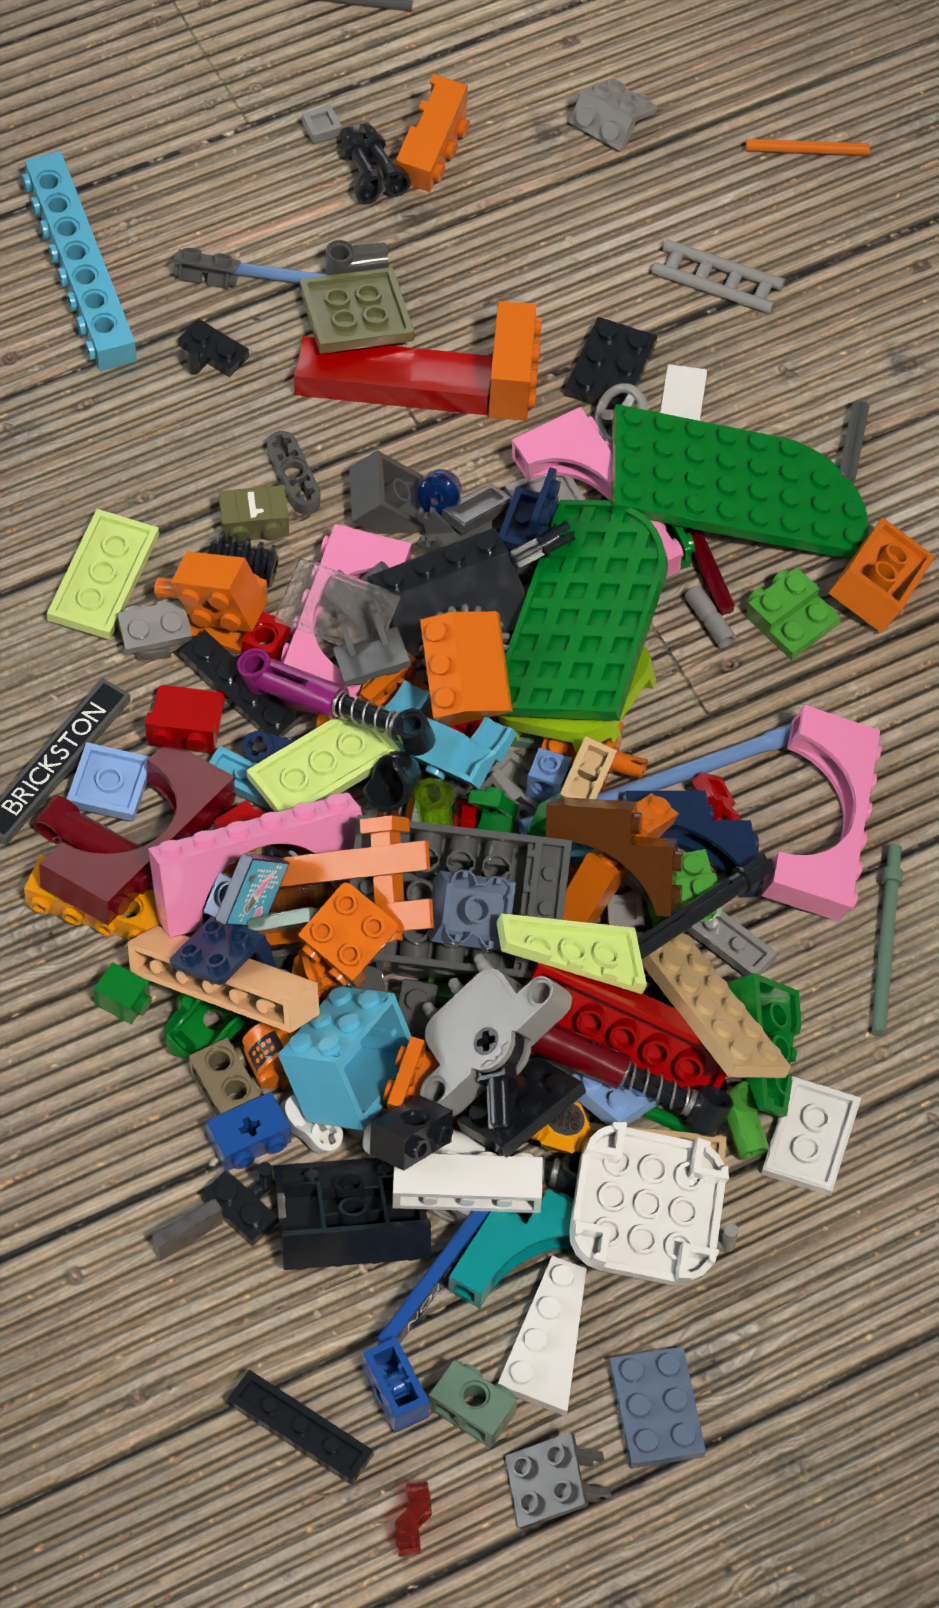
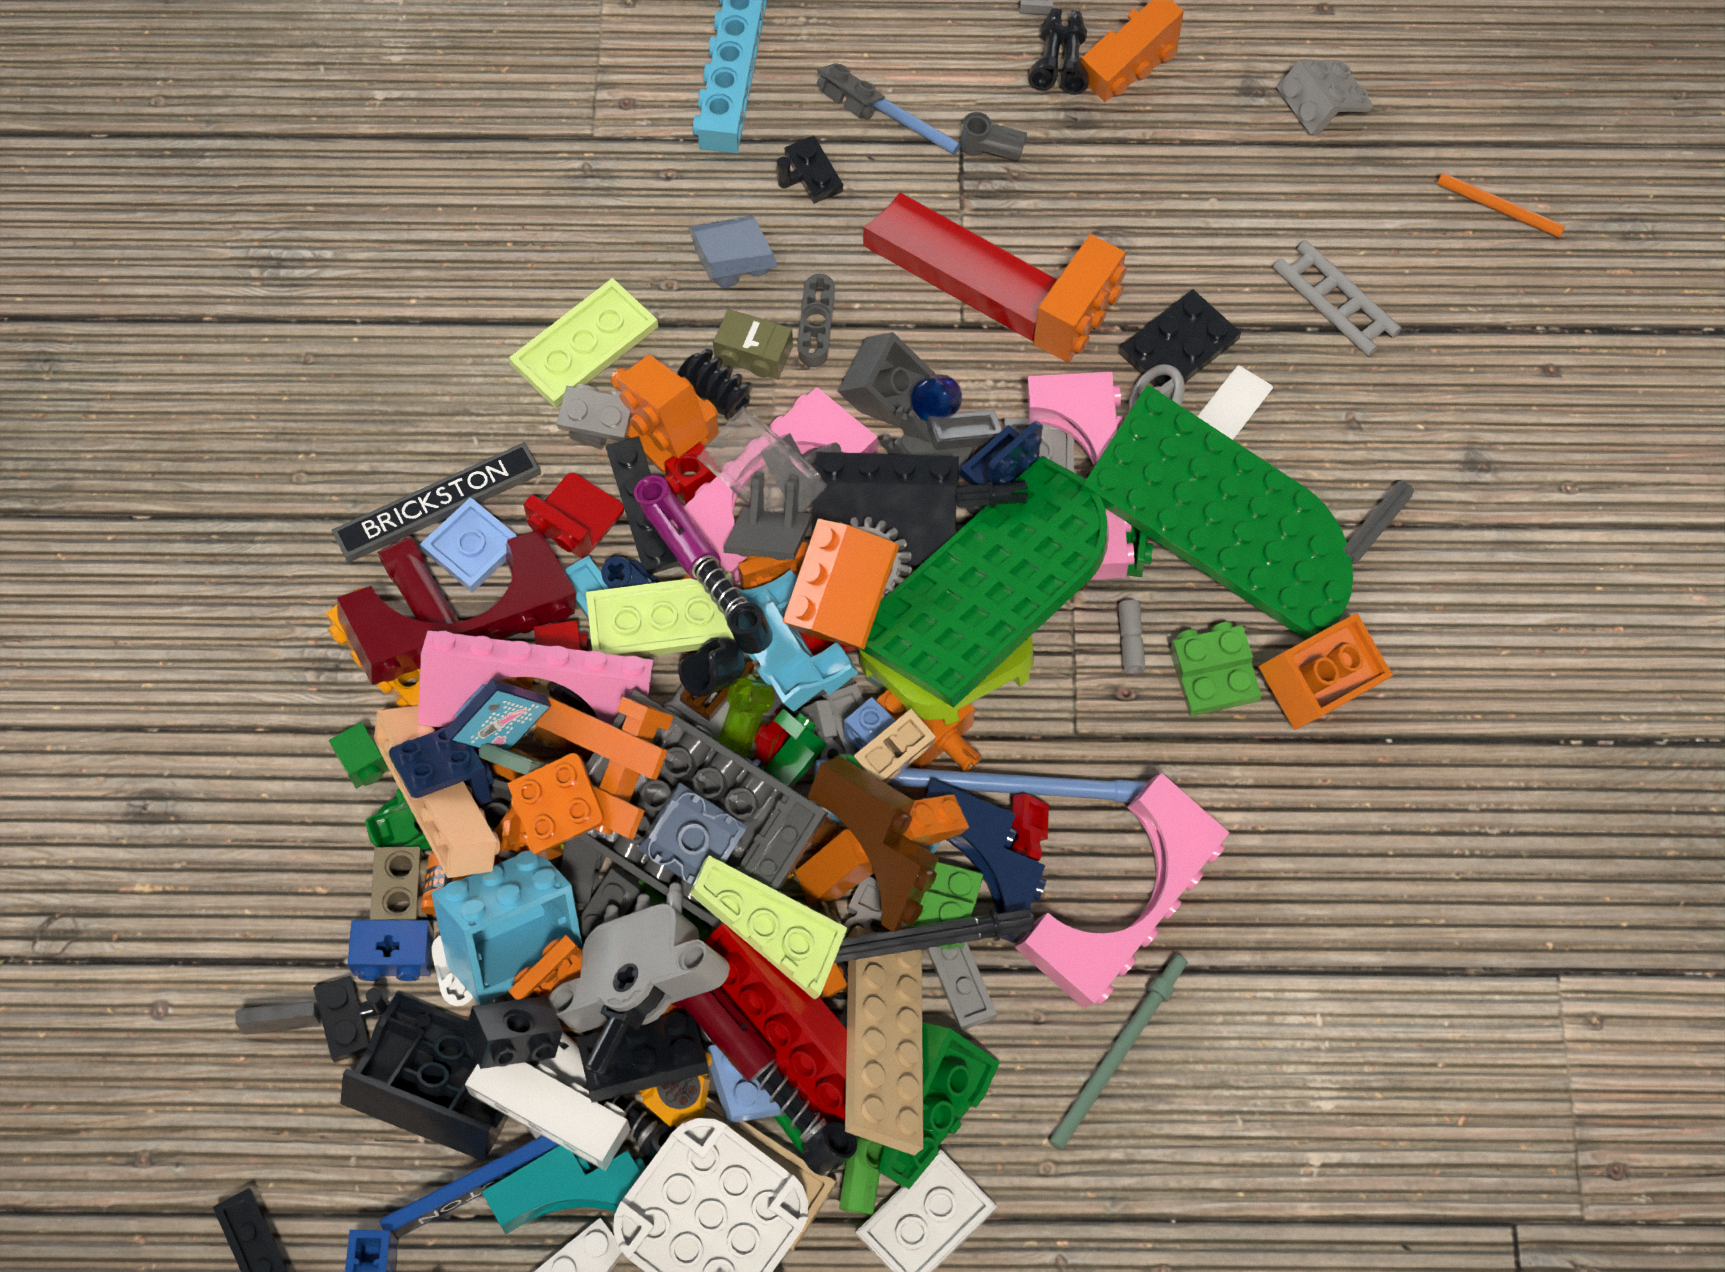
camera: 30 degrees right, 5 degrees up
(184, 444) = (732, 249): none -> sand blue slope
(356, 310) = (962, 187): olive plate -> none
(711, 574) = (1157, 593): dark red axle -> none

